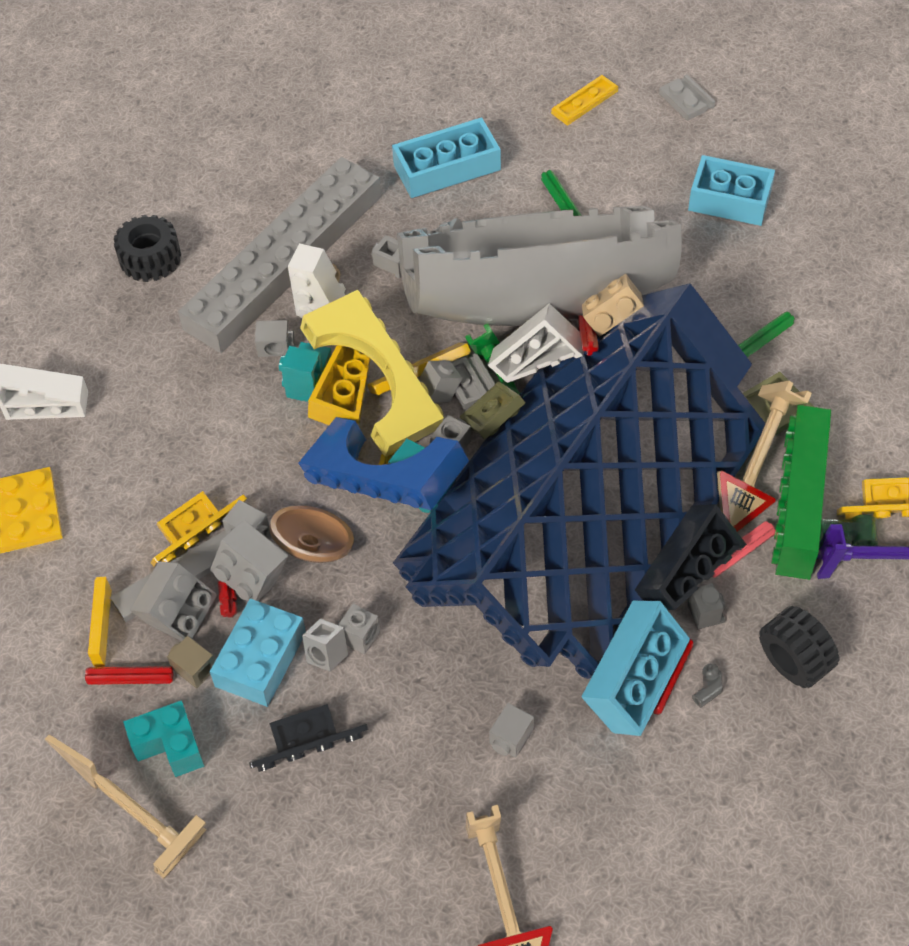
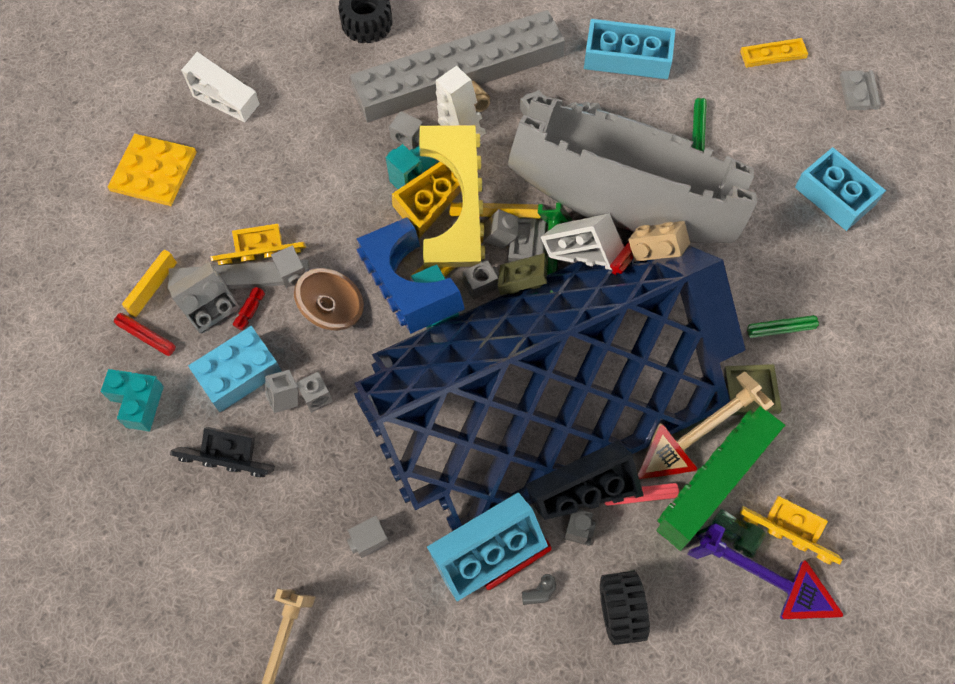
camera: 30 degrees right, 10 degrees up
(176, 844) = (88, 478): tan piece -> none
(191, 661) = (186, 347): dark tan brick -> none
(248, 562) = (266, 297): light grey brick -> none

